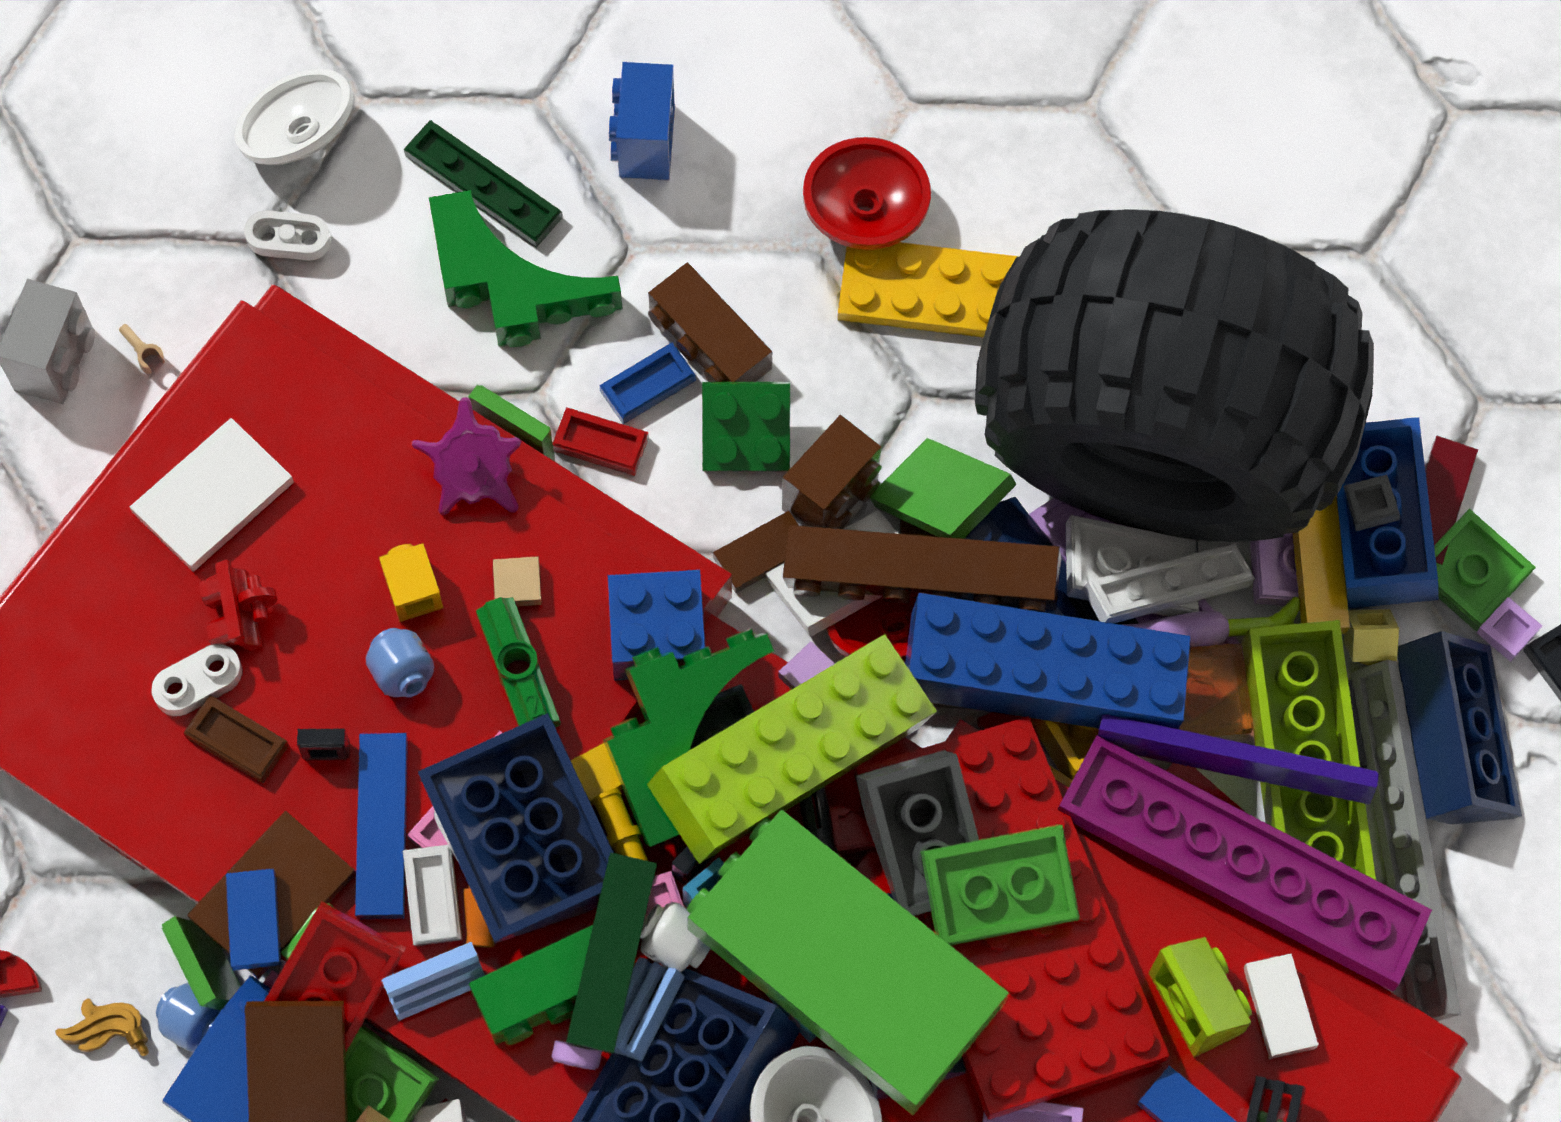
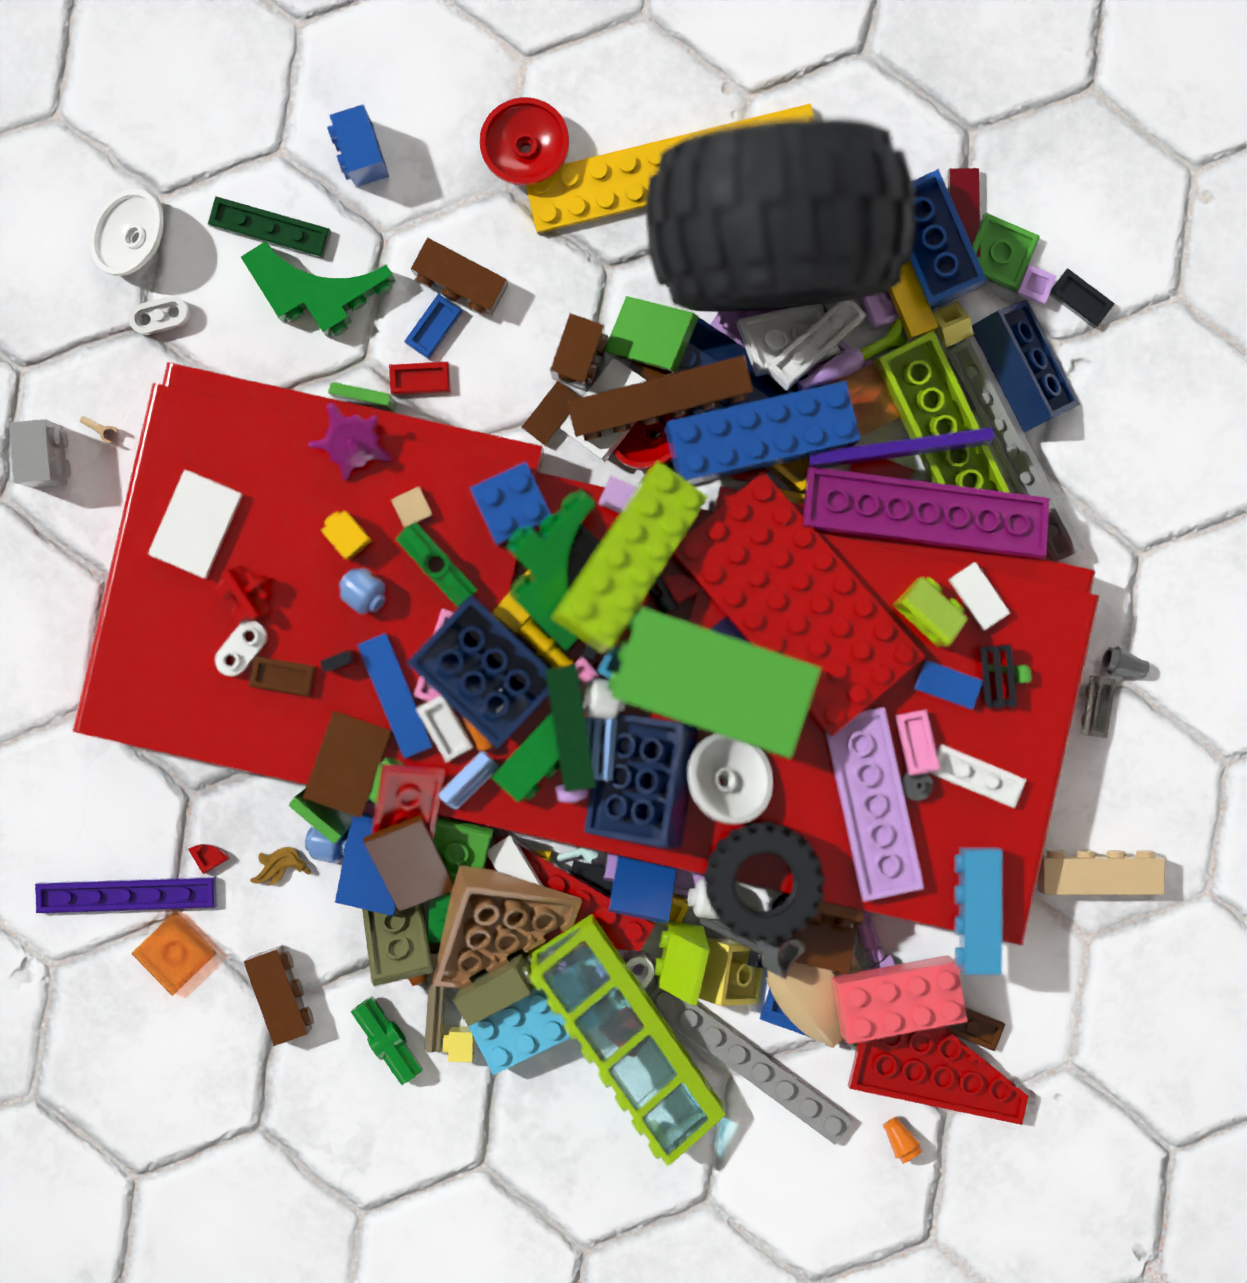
camera: 15 degrees left, 20 degrees up
(253, 919) = (344, 786): blue tile -> none
(745, 426) = (509, 335): green plate -> none
(911, 811) = (729, 579): dark grey slope -> none
(1000, 885) = (788, 595): bright green tile -> none
(1371, 502) = (929, 241): dark grey tile -> none

